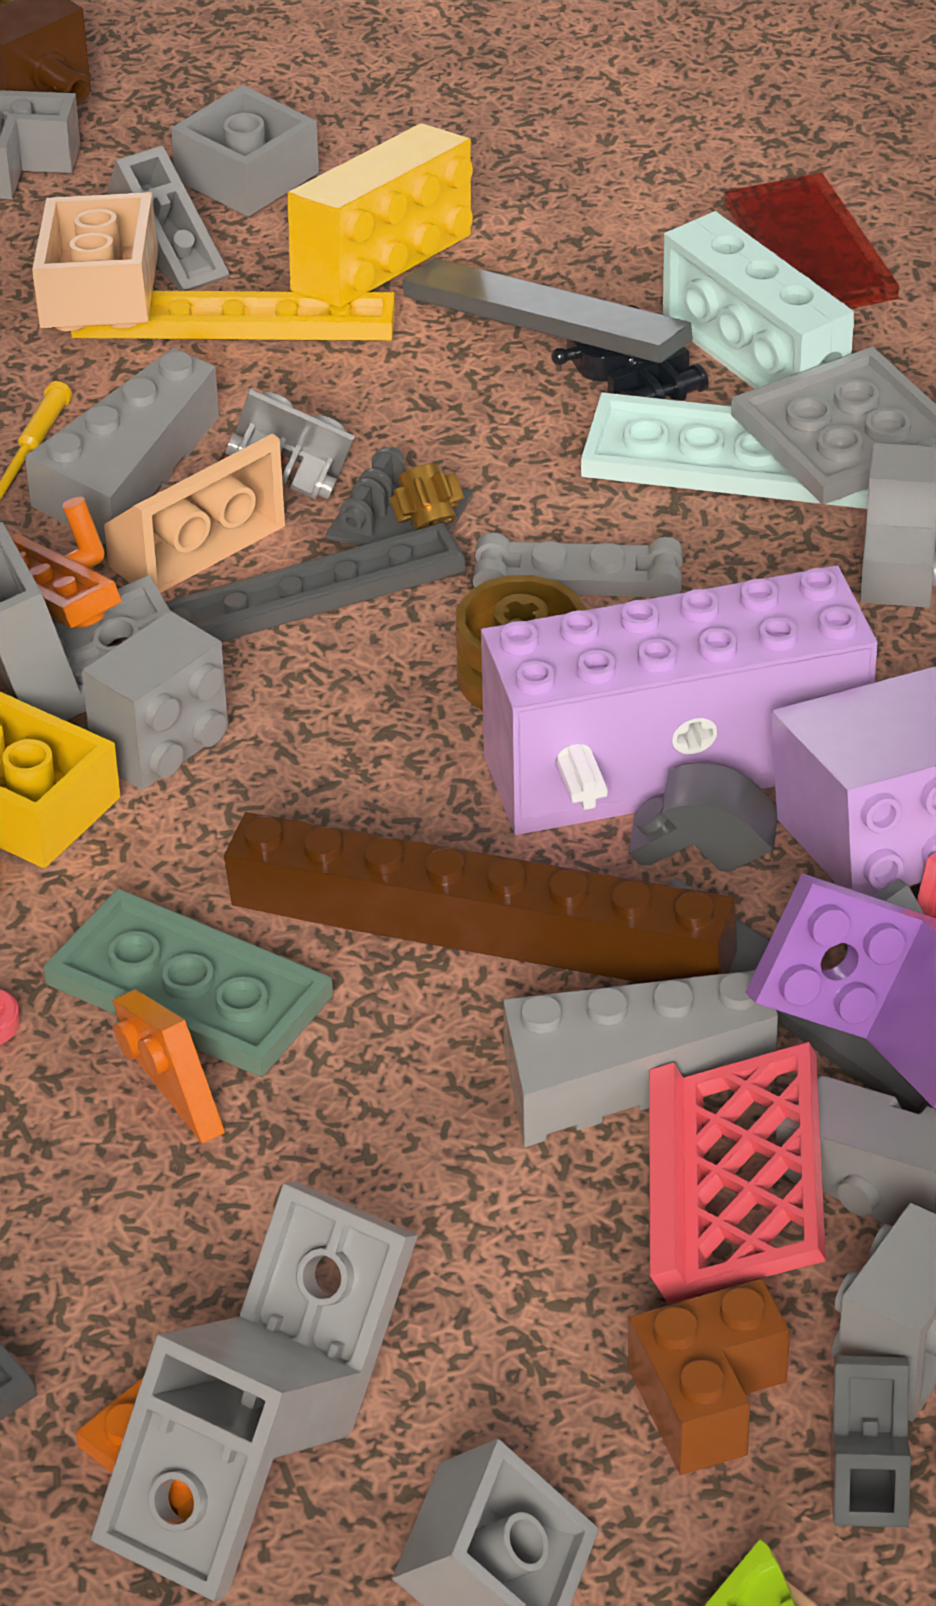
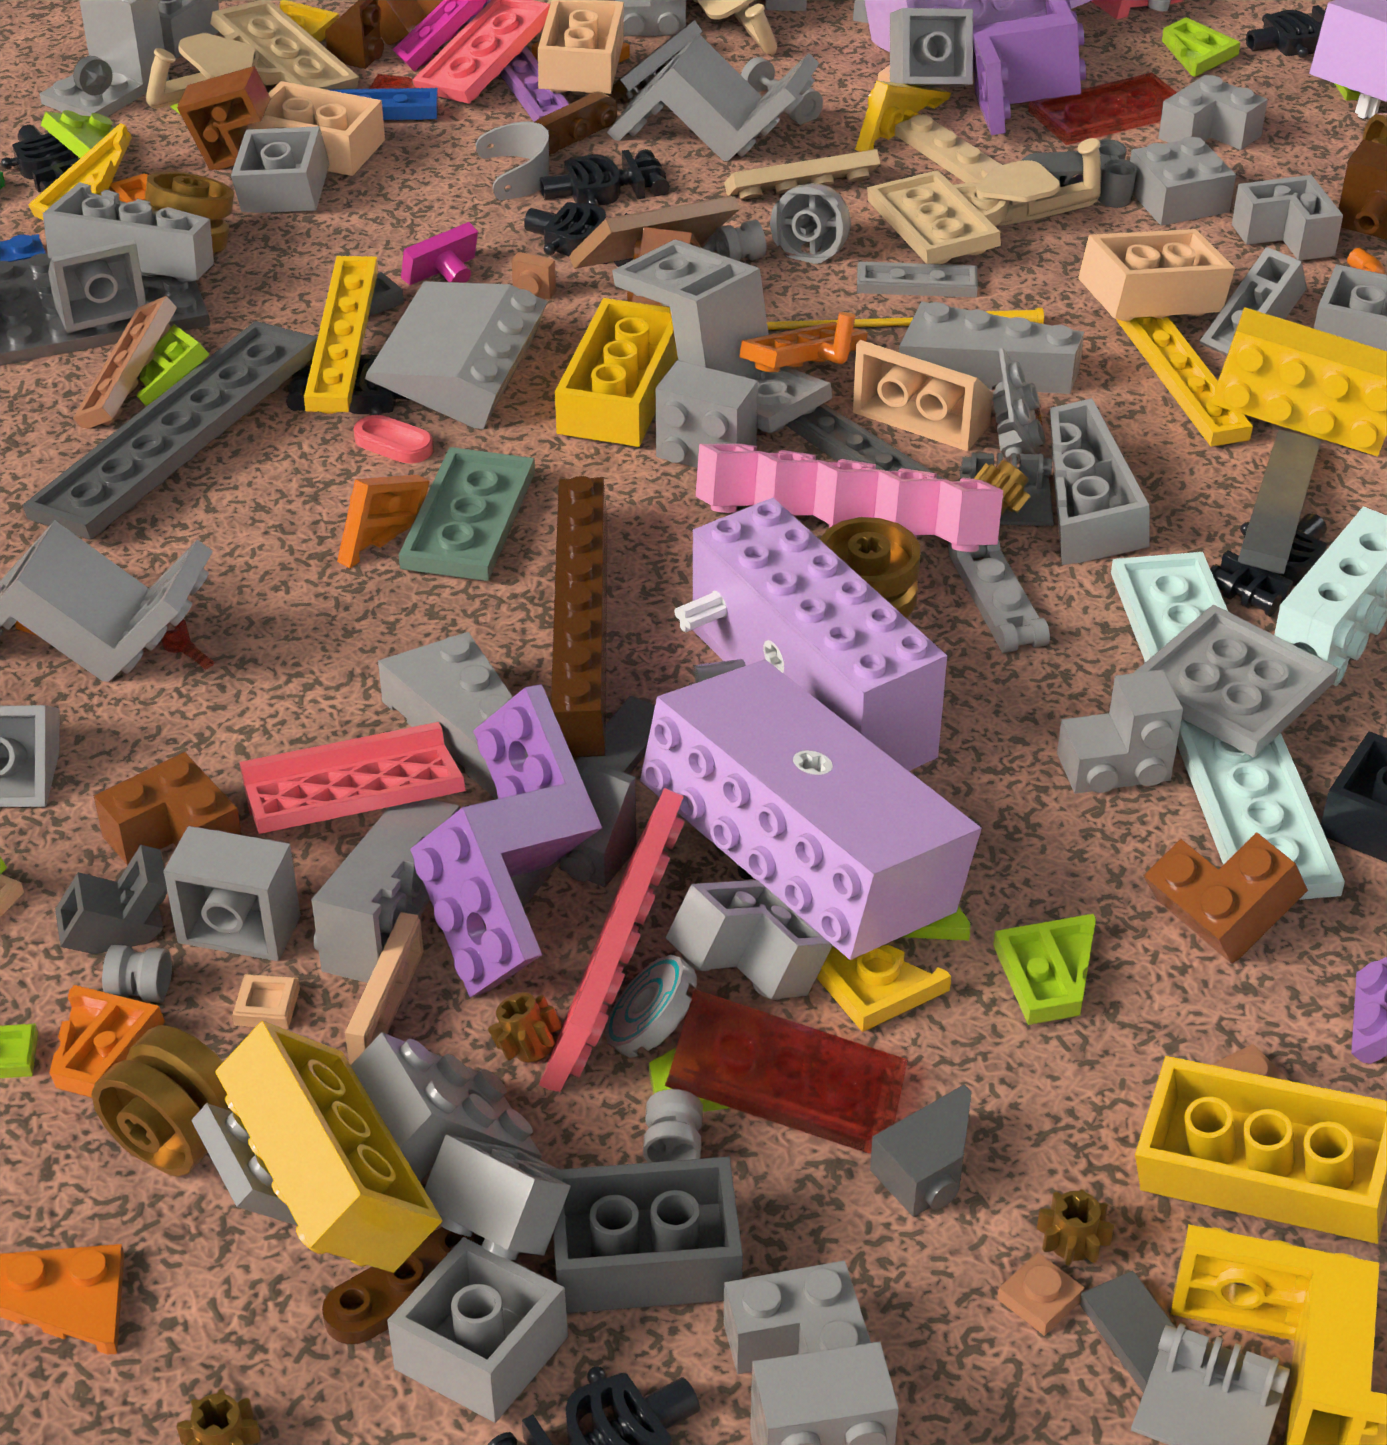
camera: 70 degrees right, 0 degrees up
(142, 126) = (1363, 260): none -> orange arm
(377, 619) = (958, 511): none -> bright pink brick
(482, 431) = (1095, 491): none -> light grey wedge

